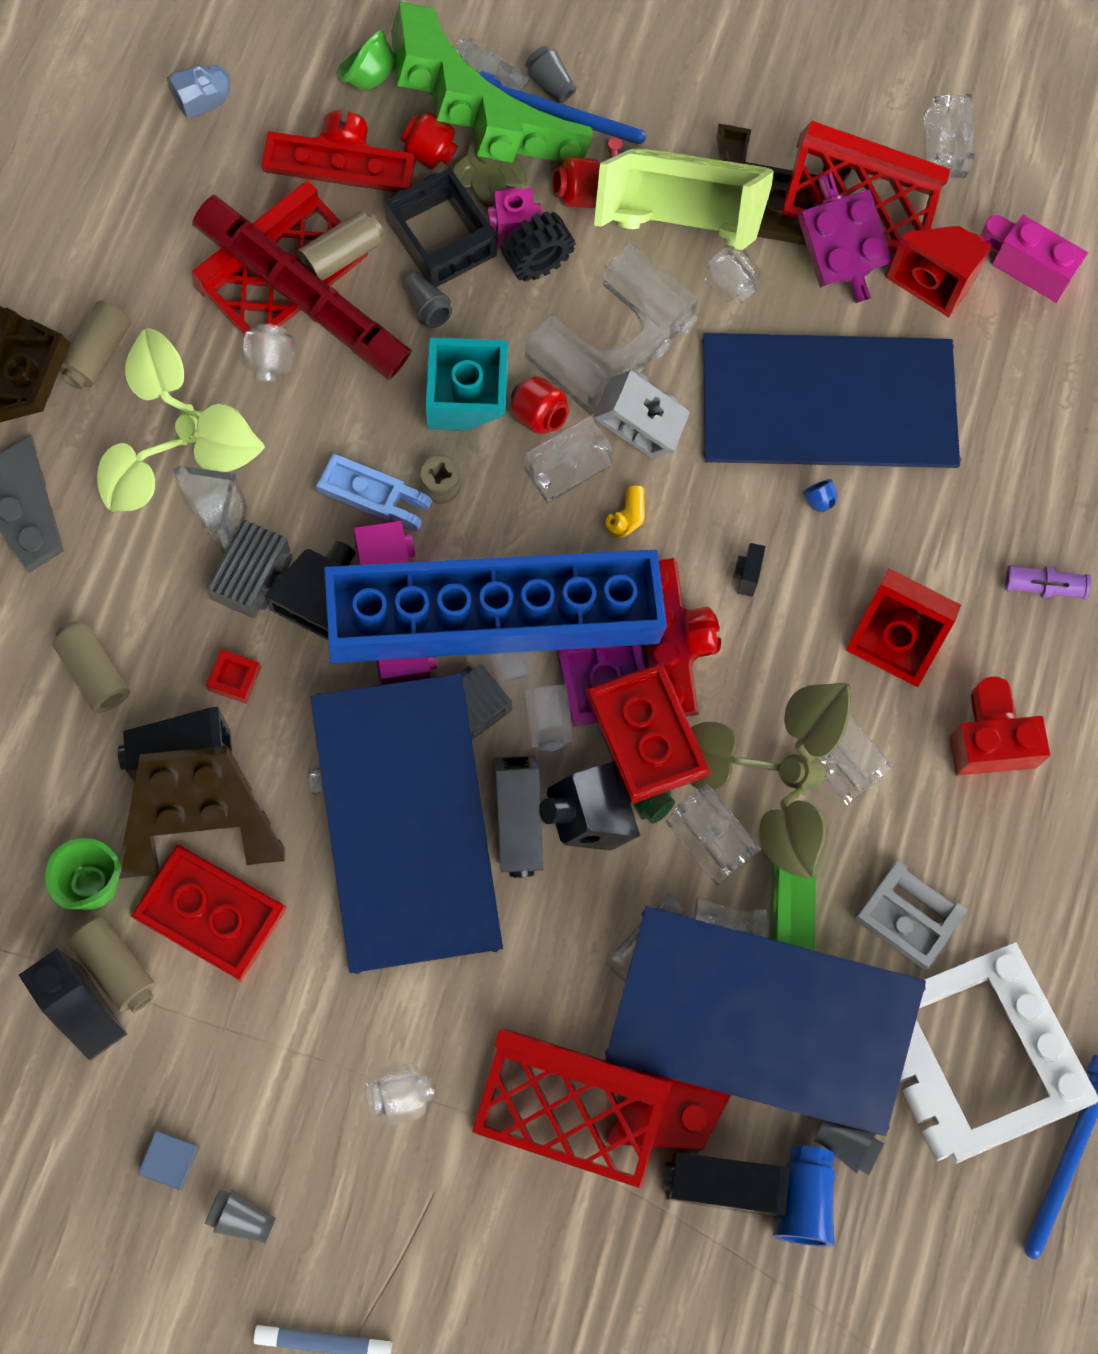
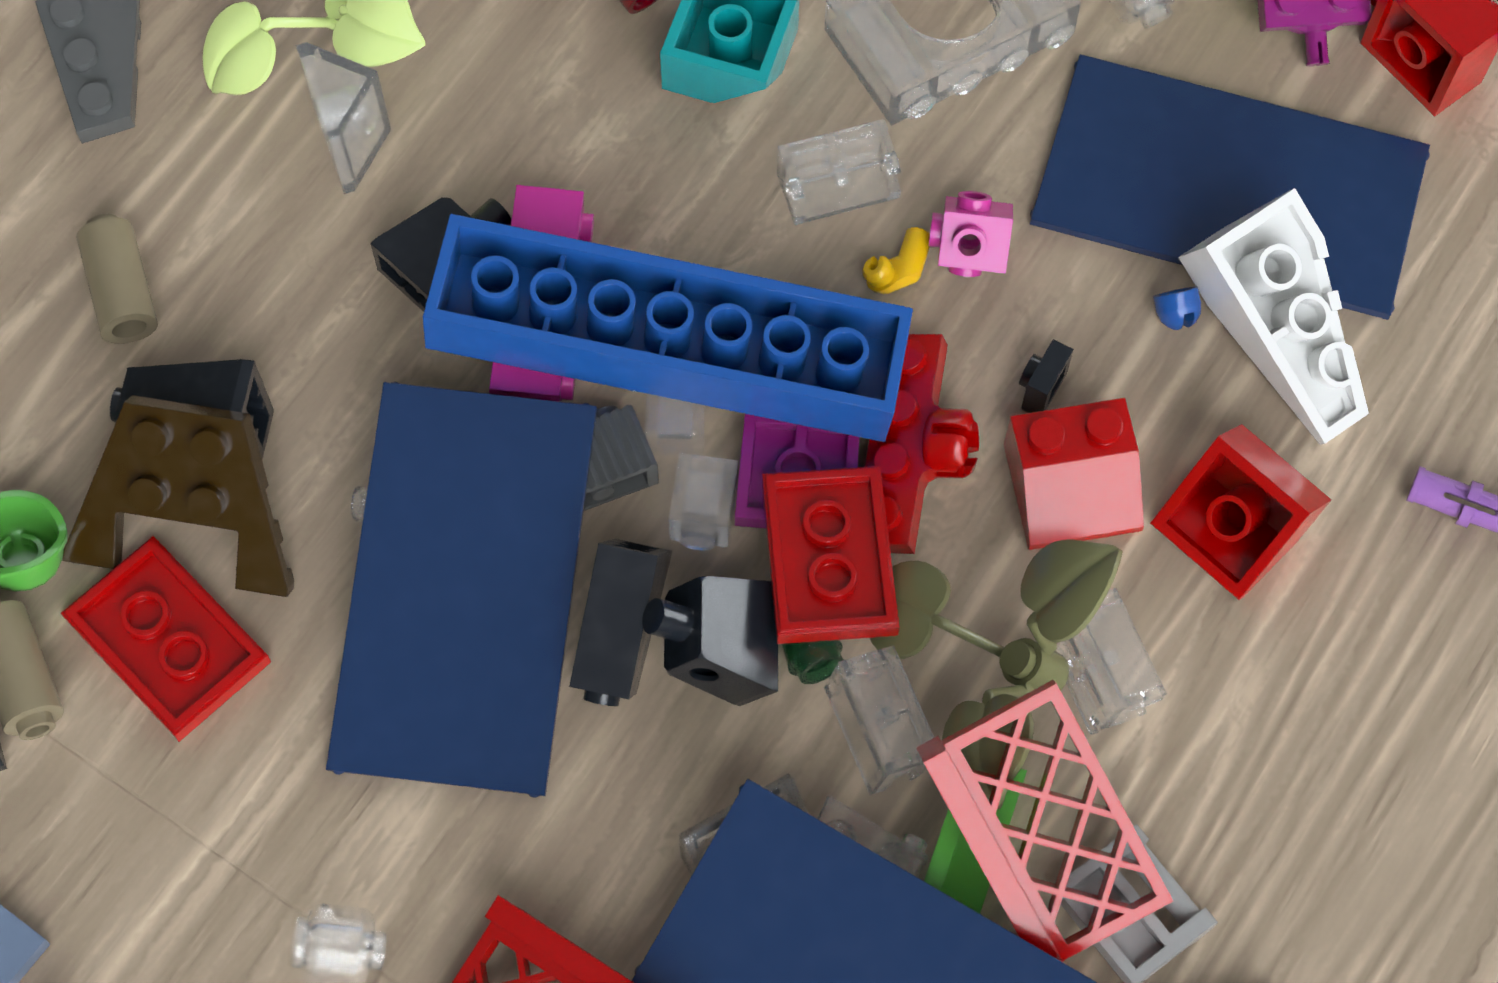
camera: 20 degrees right, 5 degrees down
(233, 676) = (298, 339): red plate -> none
(249, 569) = (363, 204): dark grey brick -> none
(371, 491) = (559, 149): light blue hinge -> none
(445, 487) = (659, 170): dark tan wheel -> none
(539, 405) = (820, 92): red head -> none
(641, 414) = (955, 133): light grey brick -> none
(673, 481) = (972, 234): none -> brick
(789, 630) = (1075, 472): none -> slope
(814, 900) = (990, 838): none -> fence
(885, 475) = (1277, 301): none -> white wedge
(997, 737) = (1330, 695): red brick -> none

